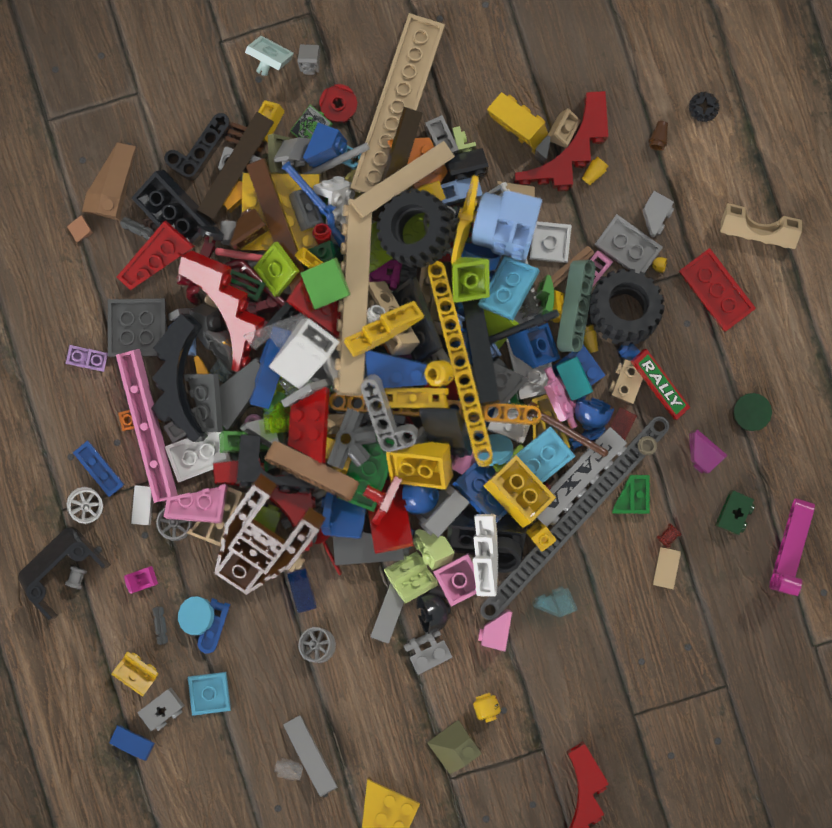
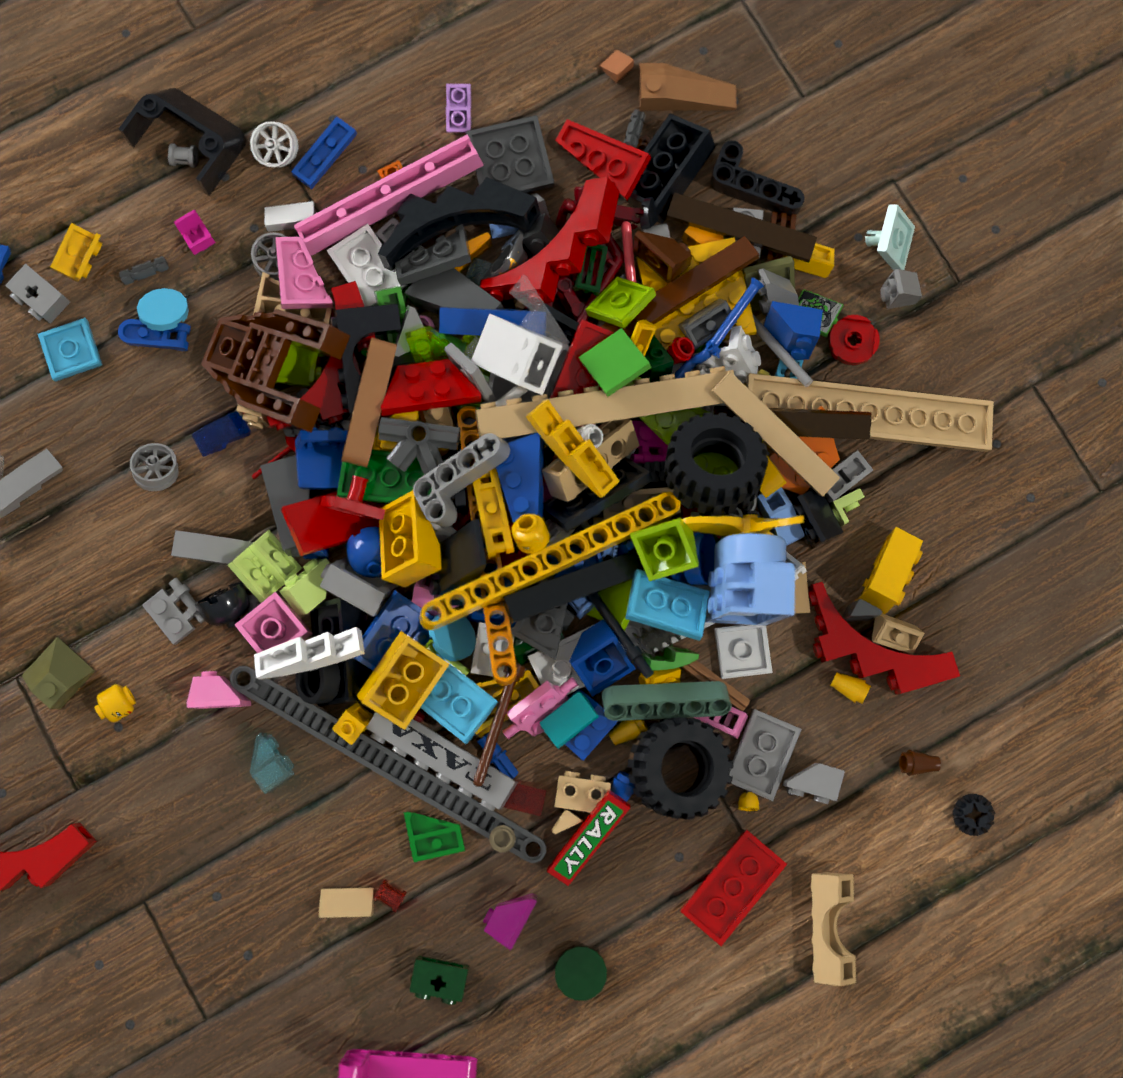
camera: 70 degrees right, 5 degrees down
(592, 413) = (529, 756): blue cylinder -> none
(644, 398) = (566, 821): none -> tan slope

